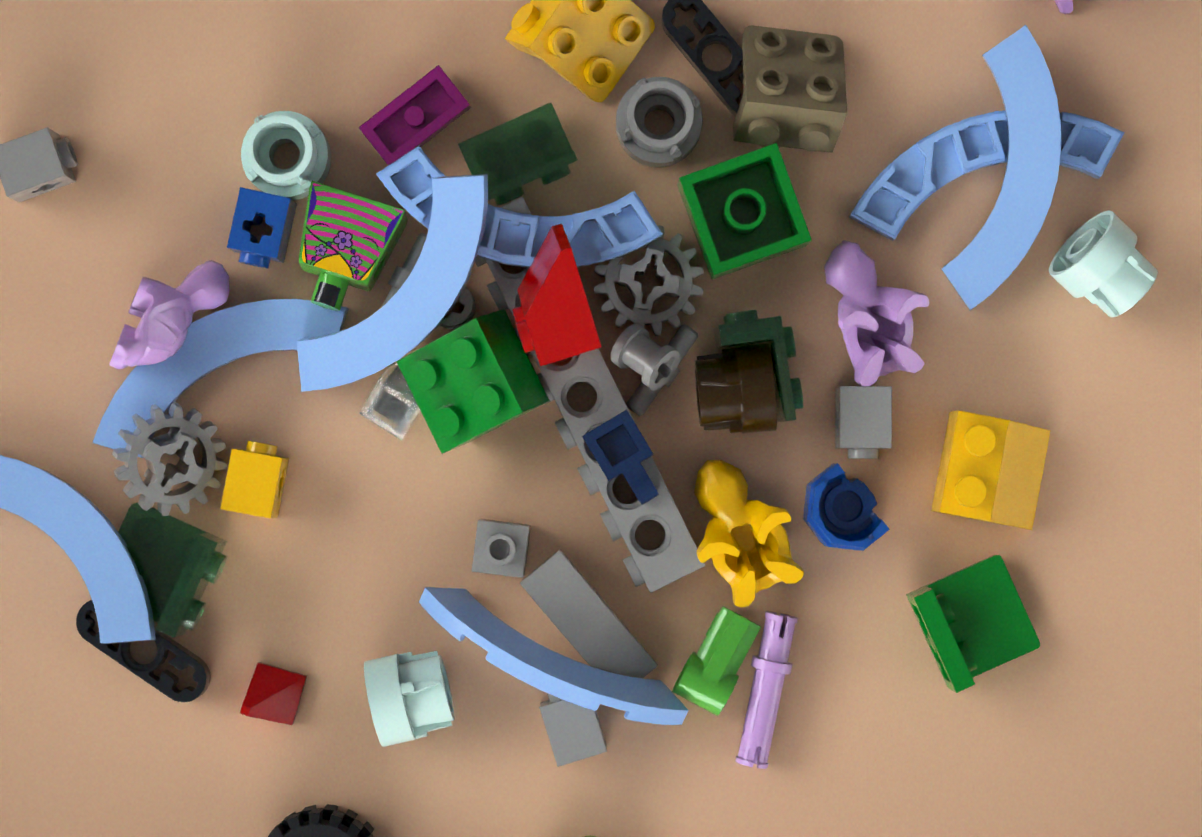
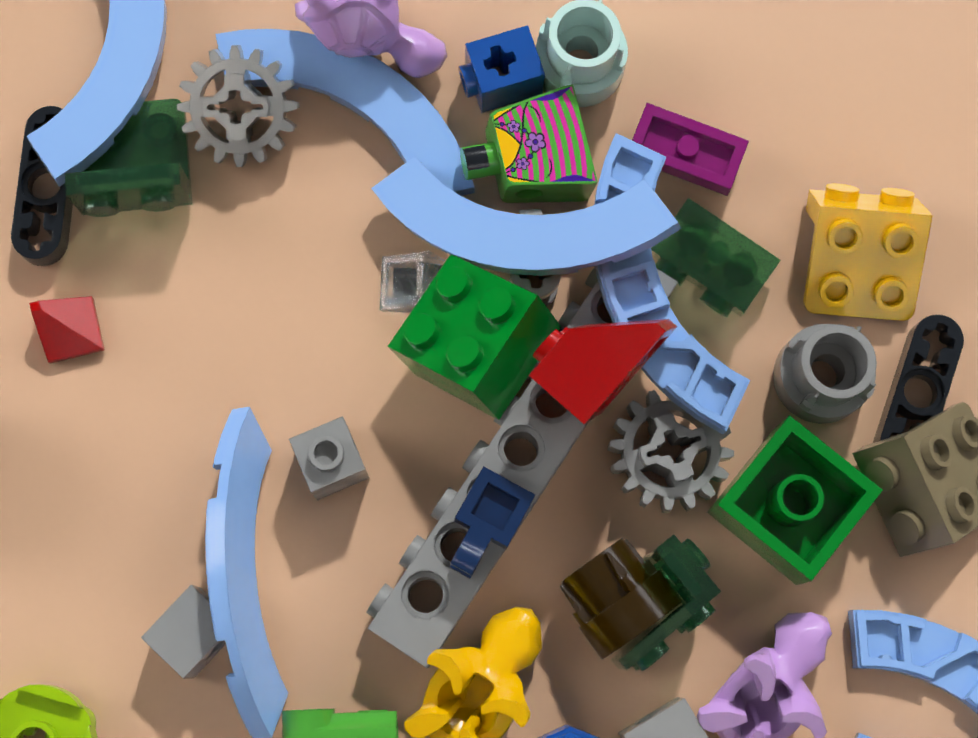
camera: 55 degrees right, 10 degrees down
(255, 480) = (262, 194): yellow brick -> none
(408, 696) = (131, 450): light aqua piece -> none
(586, 618) = (306, 581): light grey slope -> none
(651, 361) = (596, 498): light grey piece -> none

